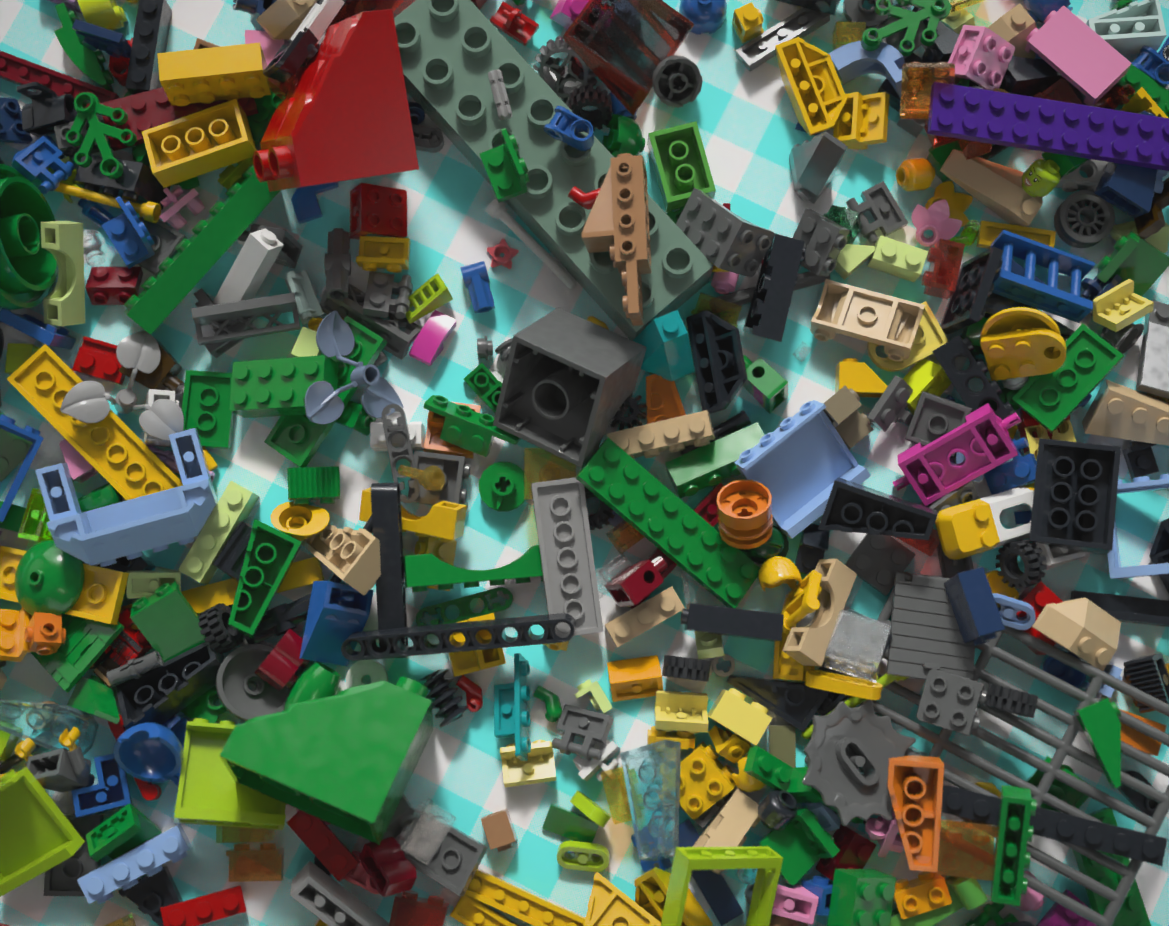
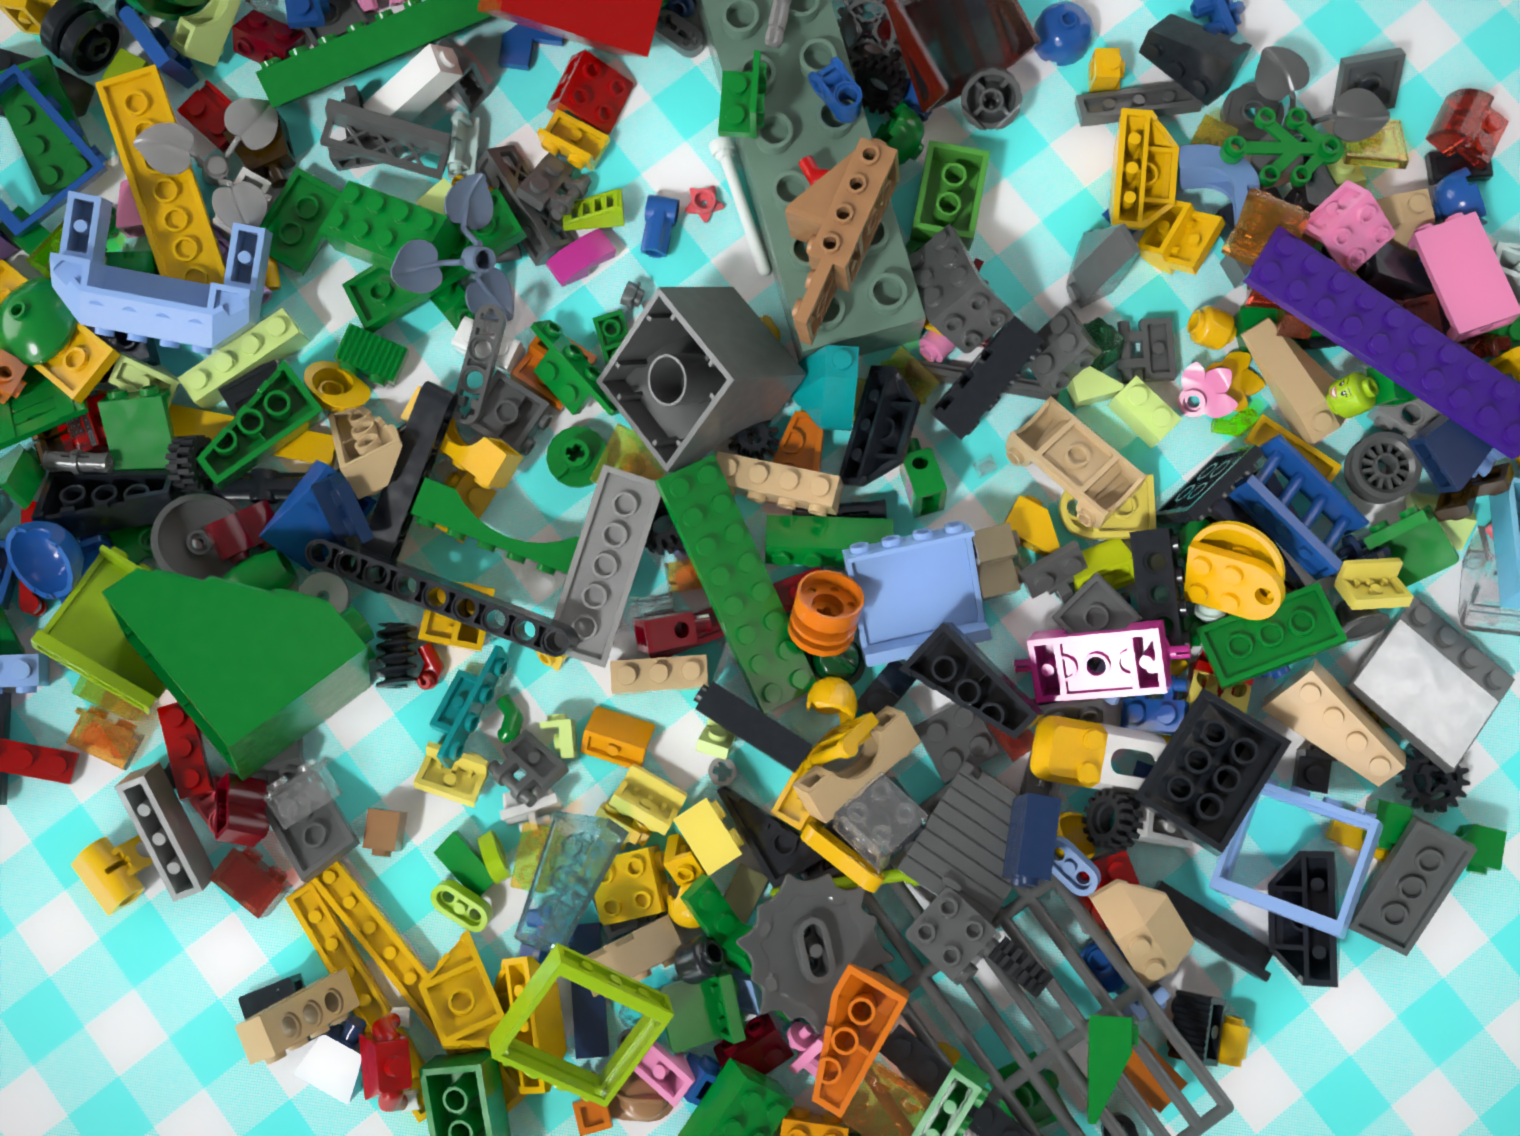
camera: 25 degrees right, 0 degrees up
(337, 264) = (515, 128): dark grey piece -> none
(354, 608) = (341, 508): none -> dark blue bracket
(430, 478) = (498, 407): clear yellow plate -> none
(464, 607) = (469, 569): green beam -> none
(686, 668) = (677, 754): black tyre -> none
(943, 269) = (1192, 446): clear red brick -> none

